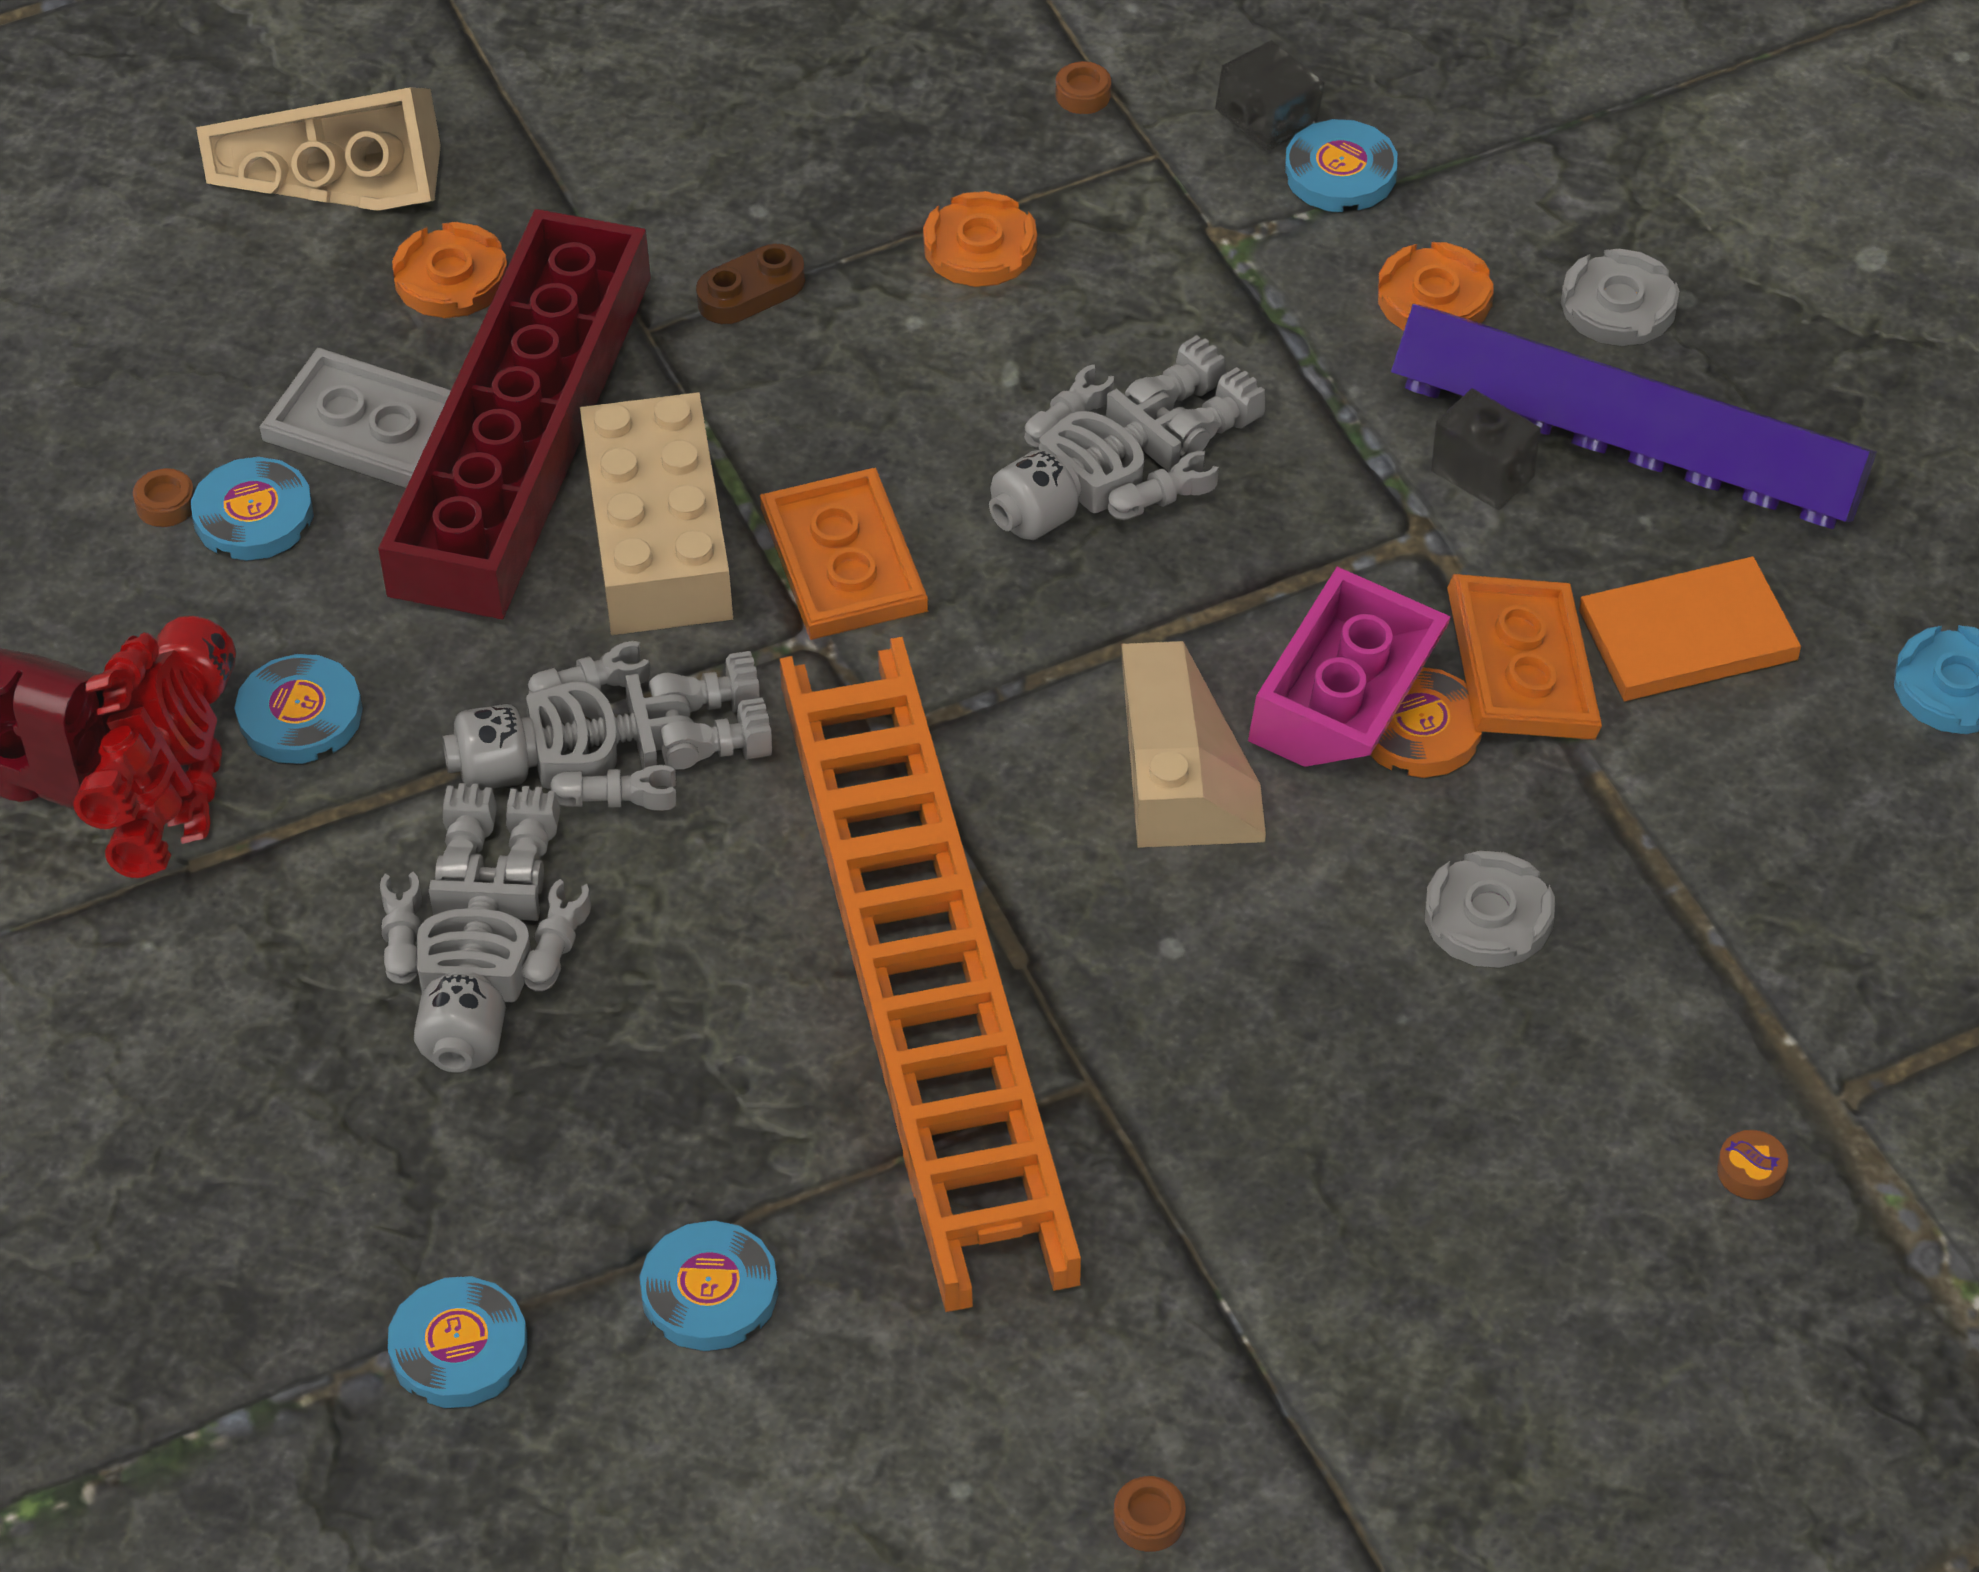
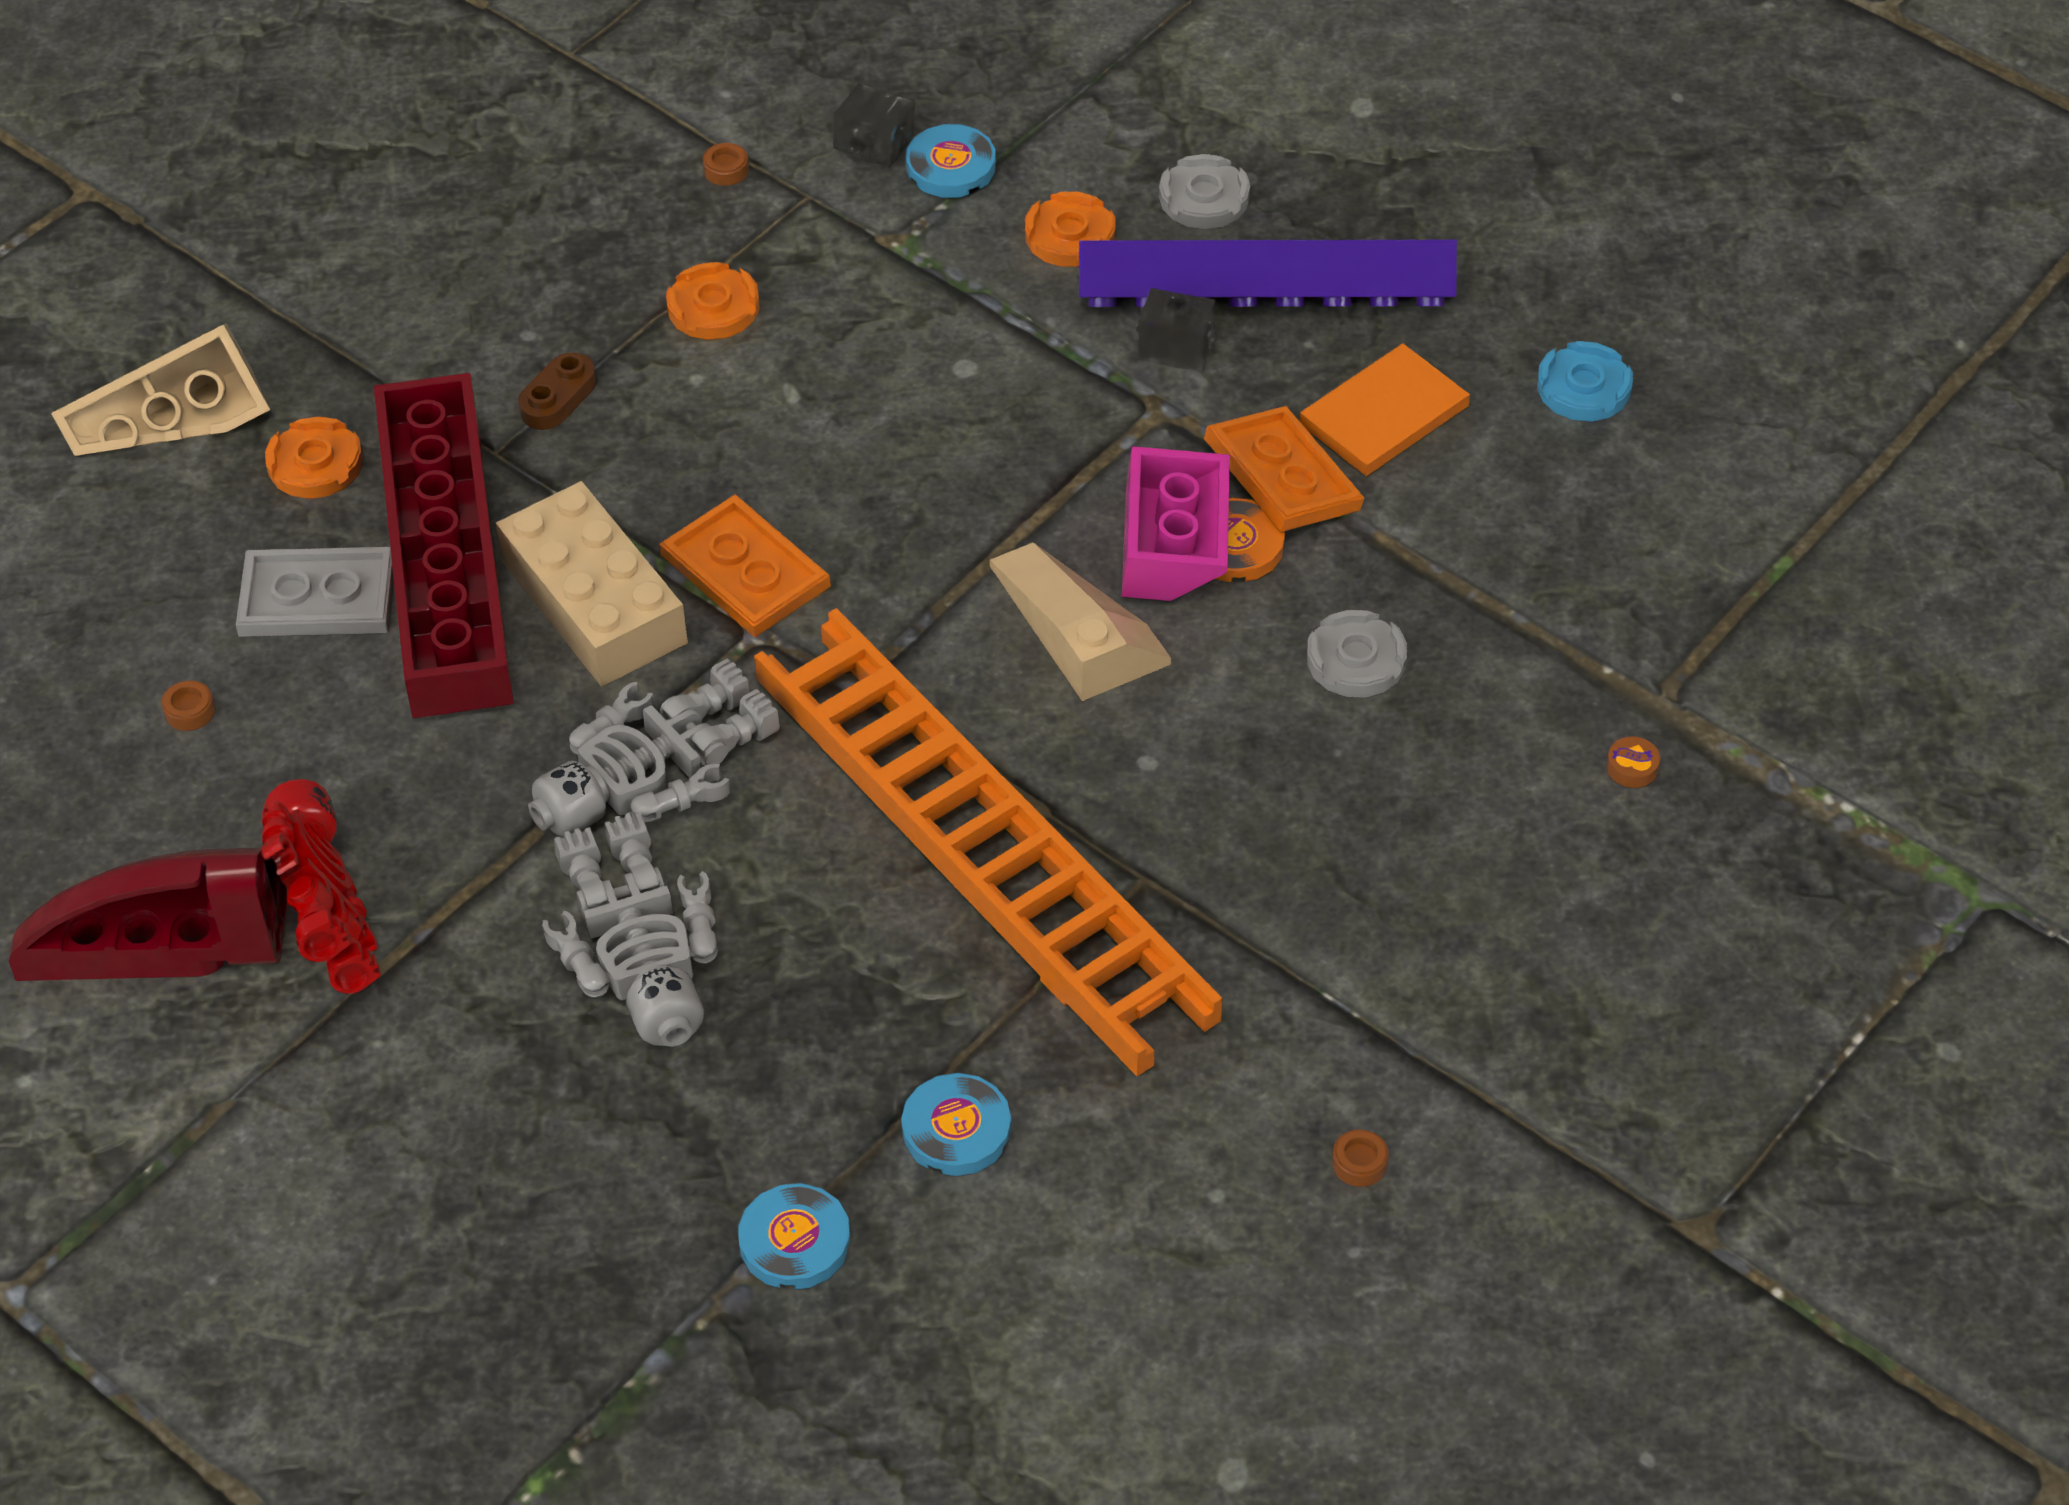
camera: 25 degrees left, 0 degrees up
(252, 508) = (265, 689): dark azure tile -> none
(298, 708) = (393, 825): dark azure tile -> none
(1085, 451) = (905, 425): light grey piece -> none

